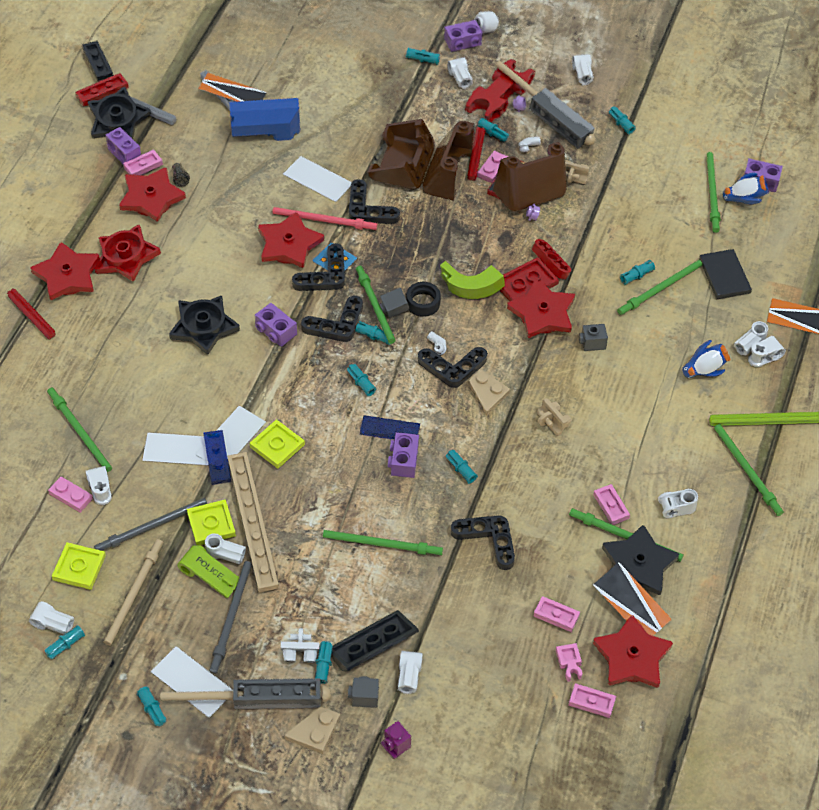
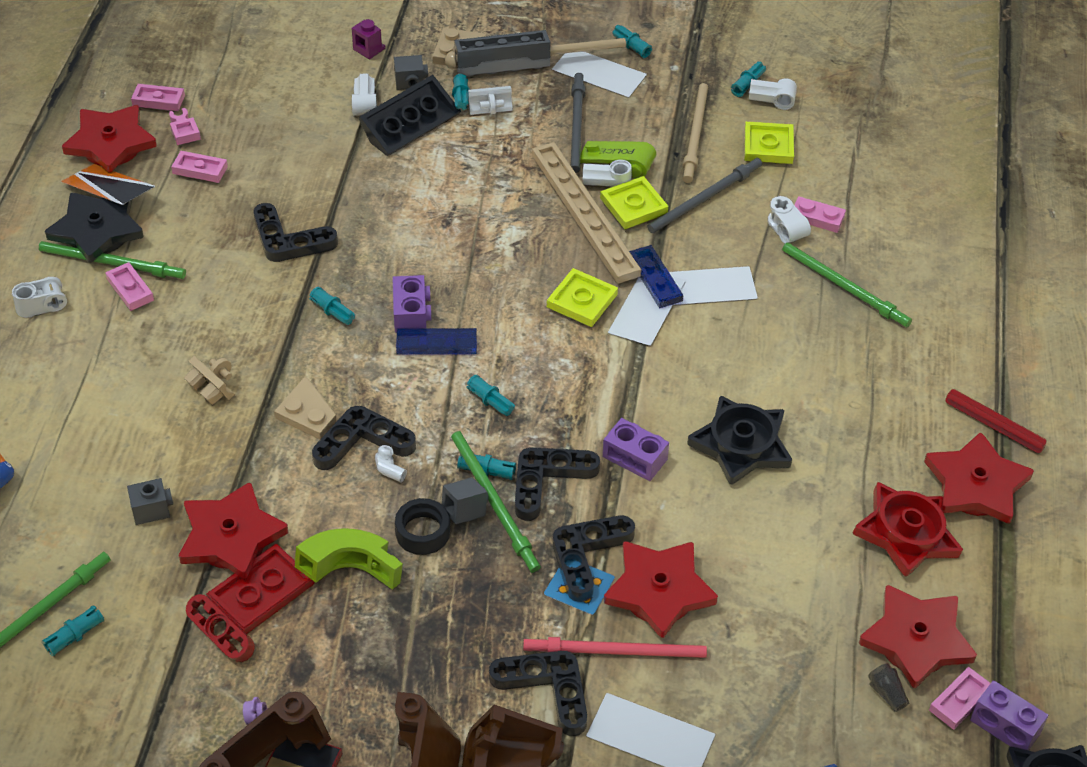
camera: 170 degrees right, 5 degrees down
(421, 548) = (369, 212): bright green bar -> none

